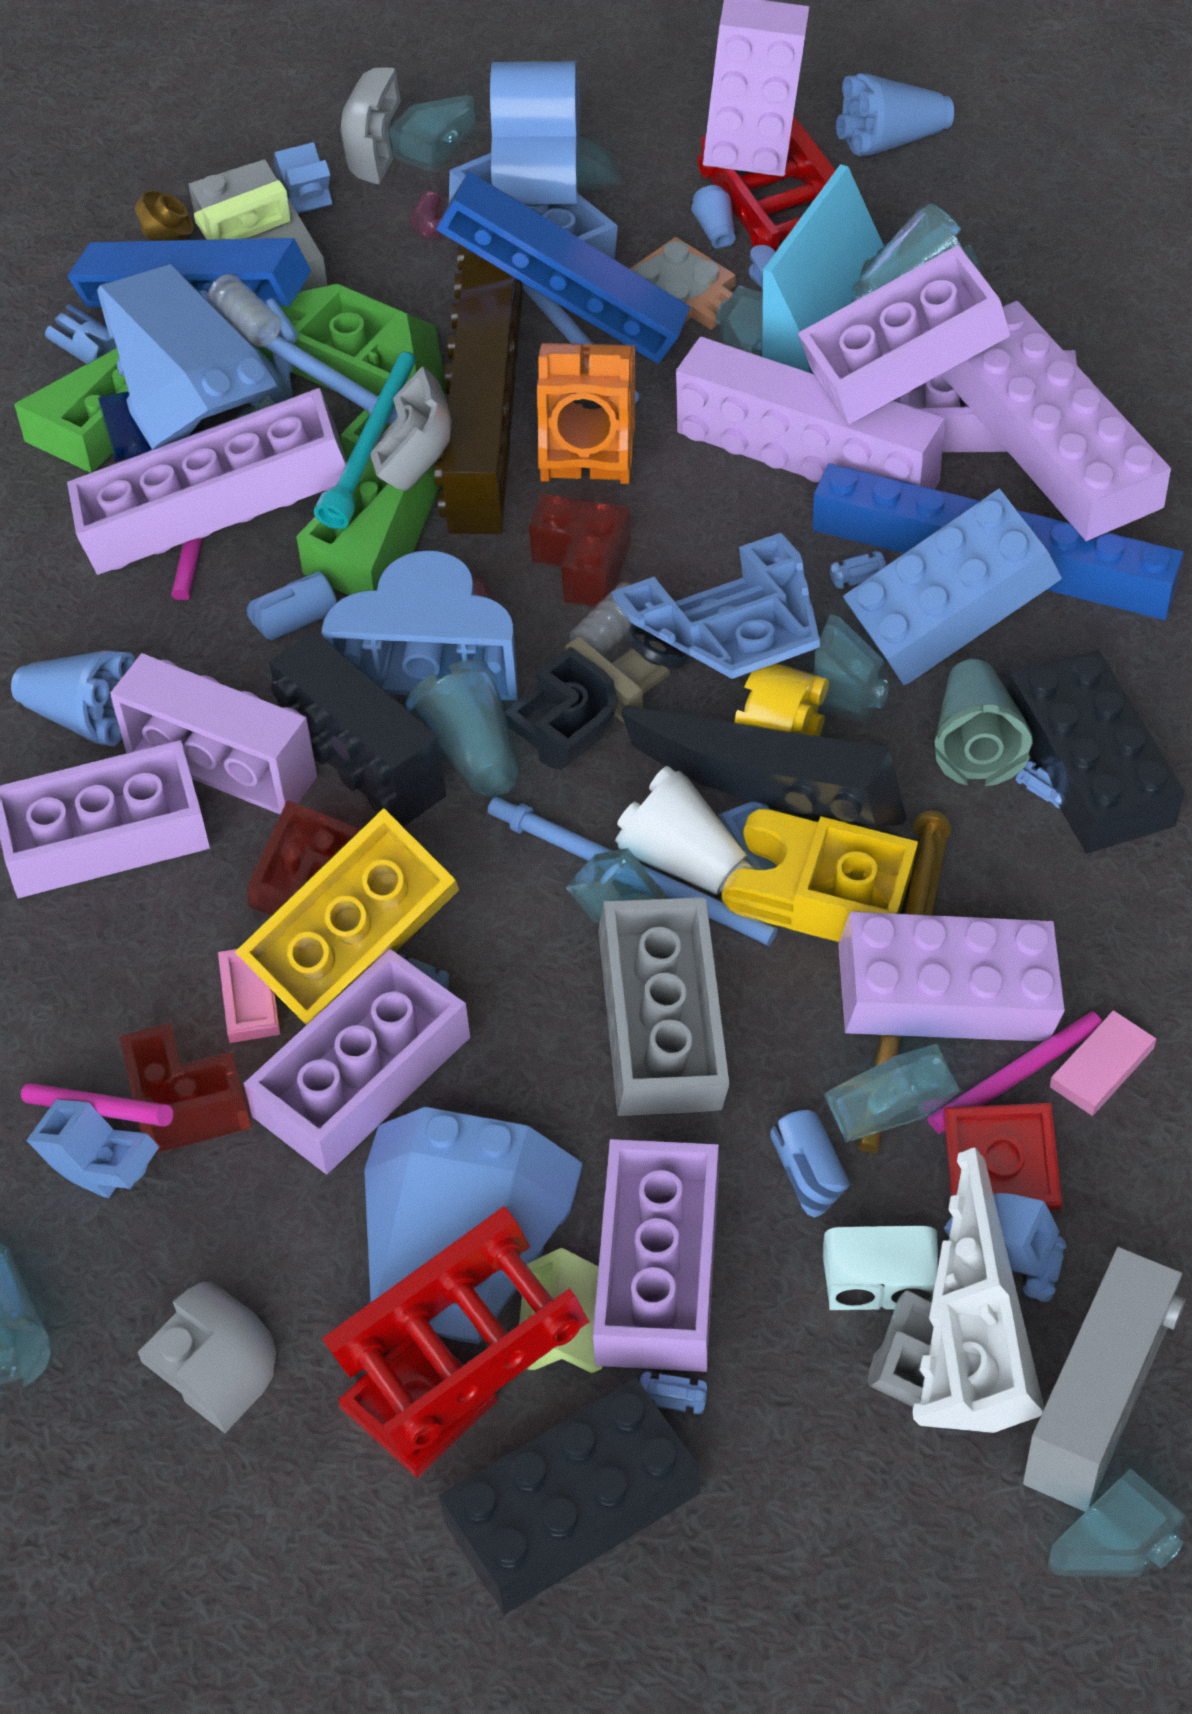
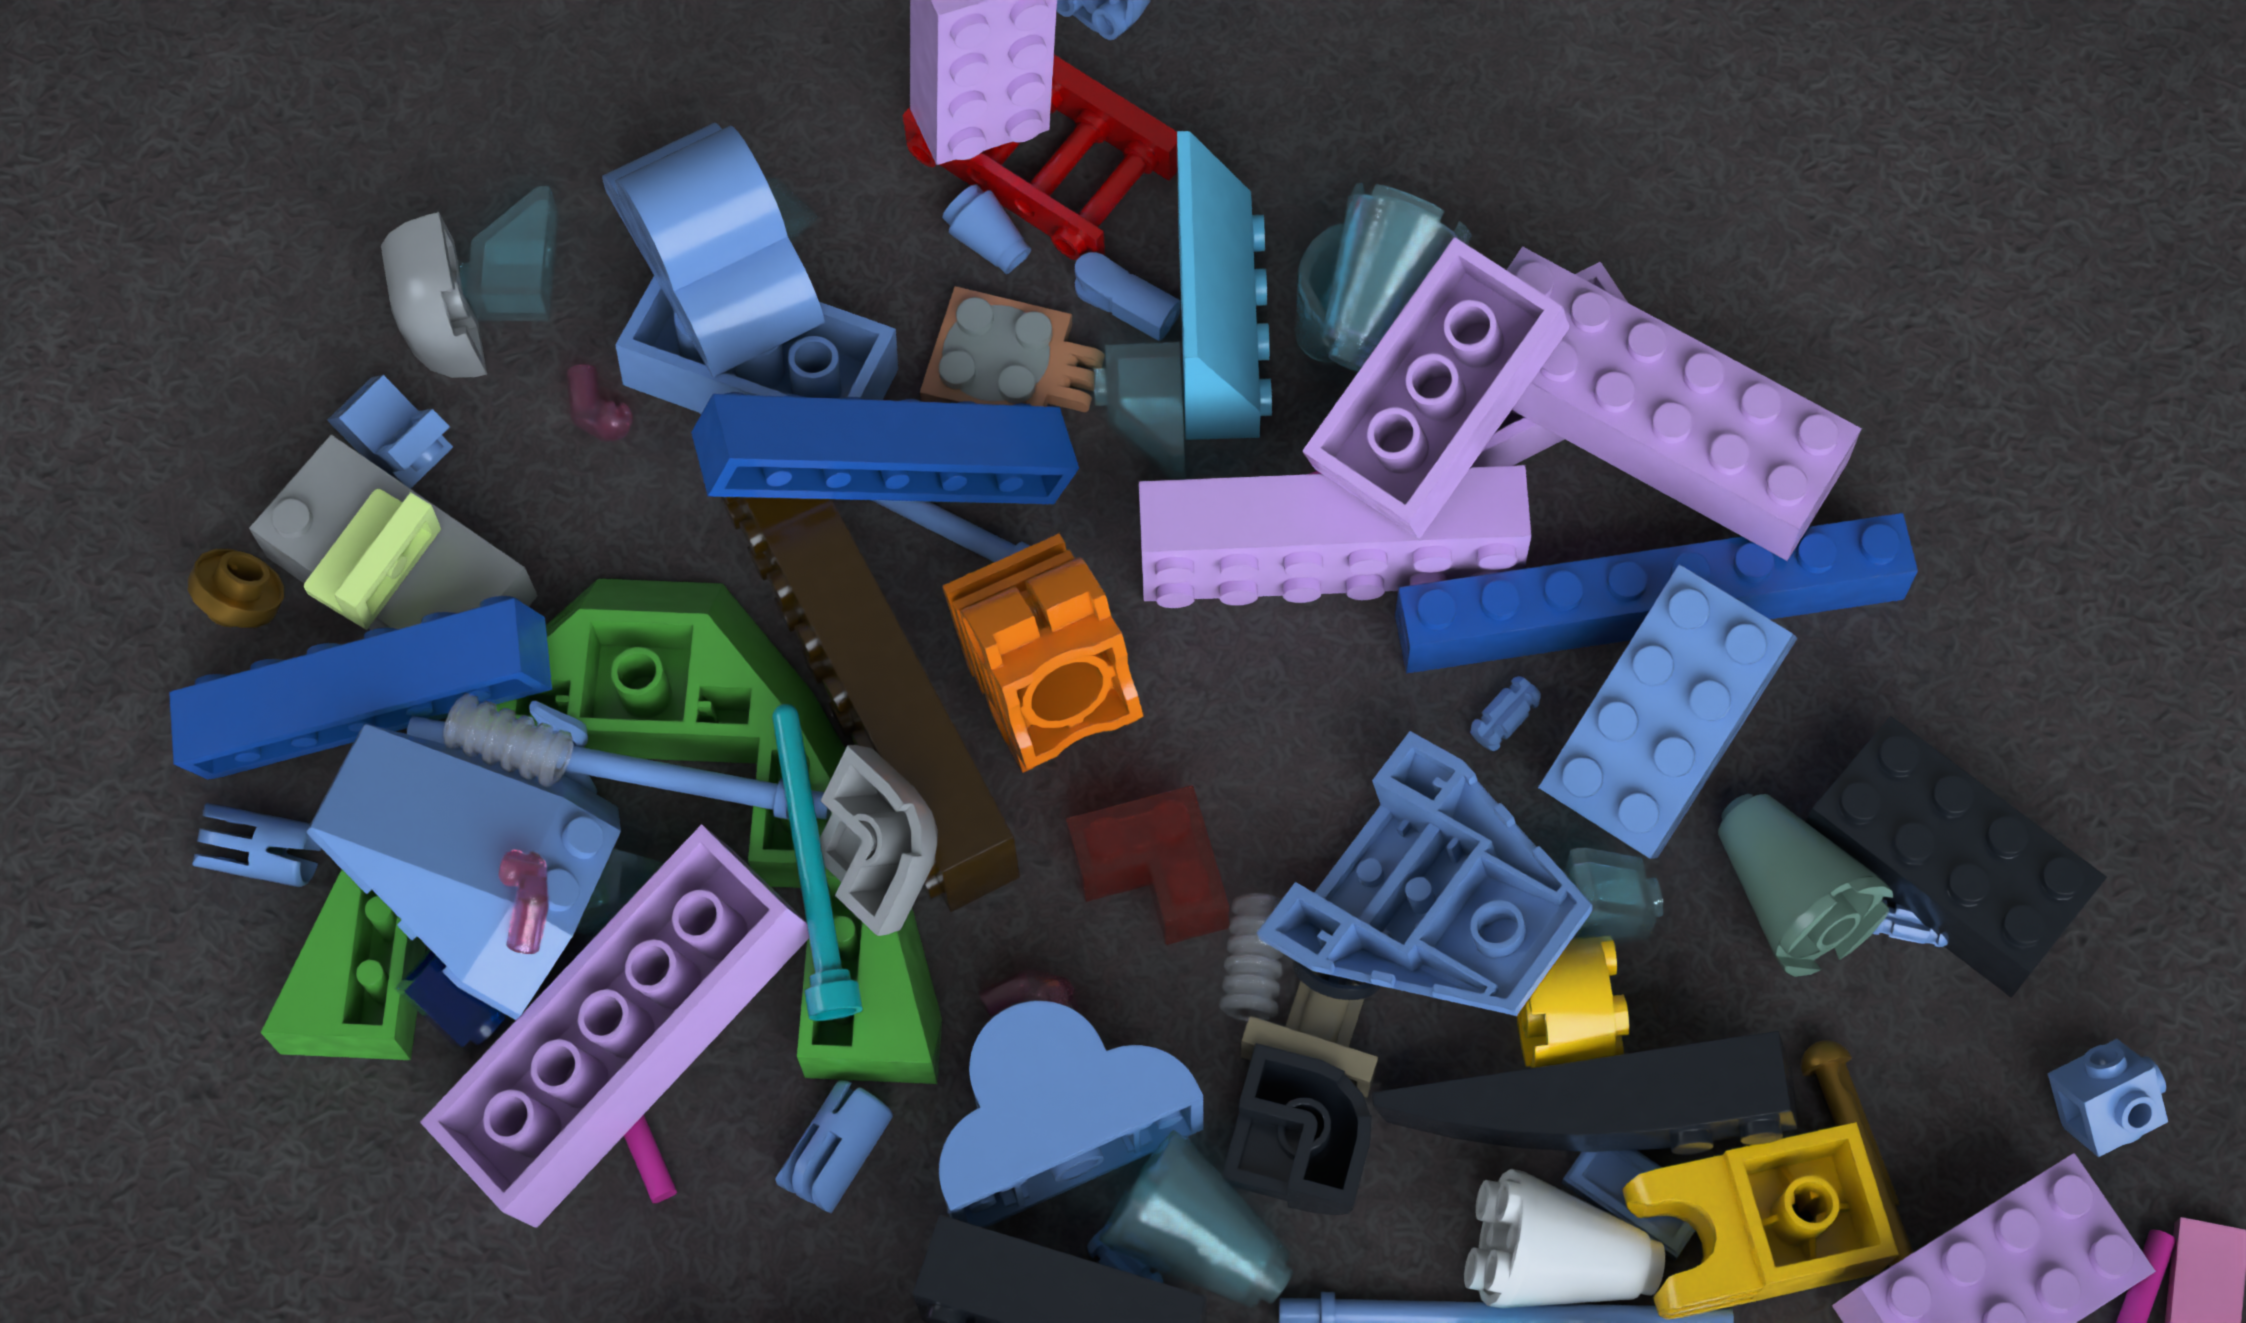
camera: 30 degrees left, 15 degrees up
(198, 361) = (531, 901): none -> clear pink arm
(1095, 904) = (2109, 1097): none -> medium blue brick

